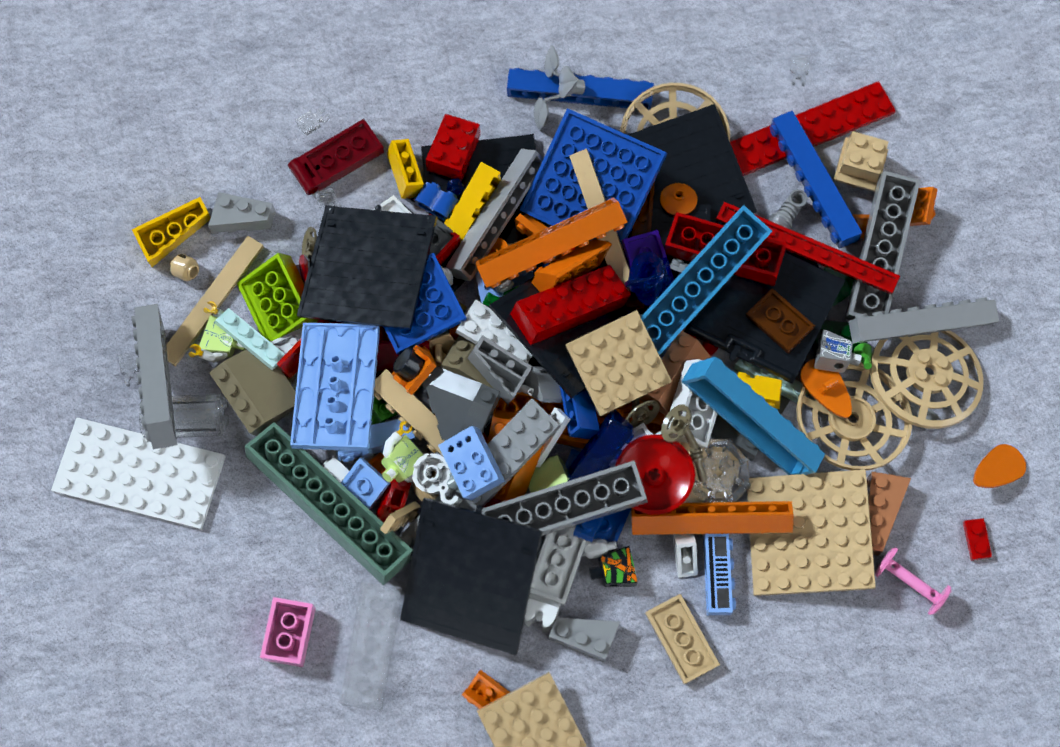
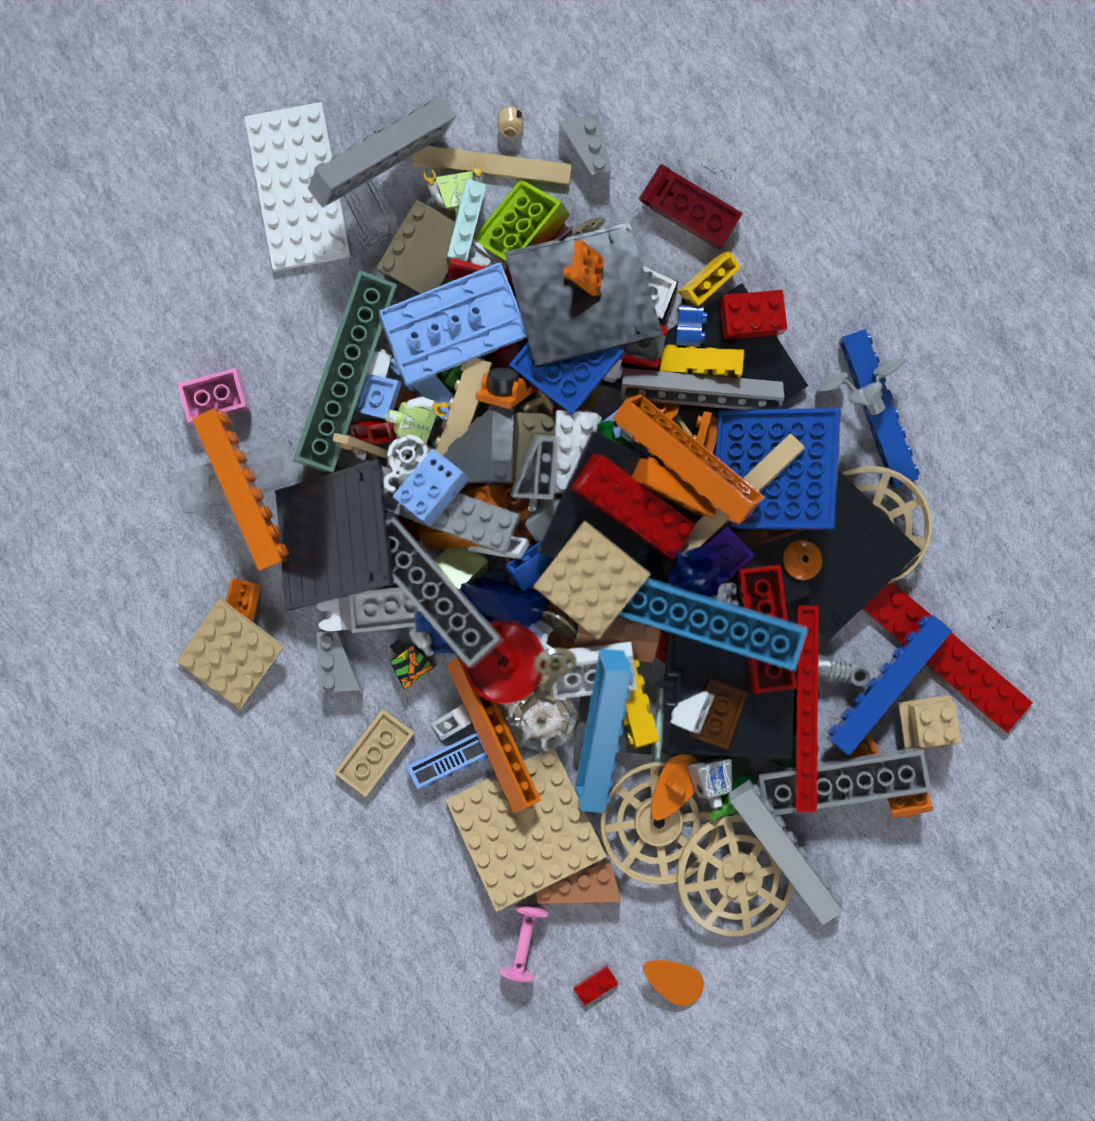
camera: 65 degrees right, 15 degrees up
(171, 229) = (537, 87): yellow wedge -> none
(348, 250) = (586, 268): none -> orange plate
(388, 637) = (240, 488): none -> orange brick
(455, 186) = (713, 337): clear blue plate -> none
(770, 338) = (692, 712): none -> white slope

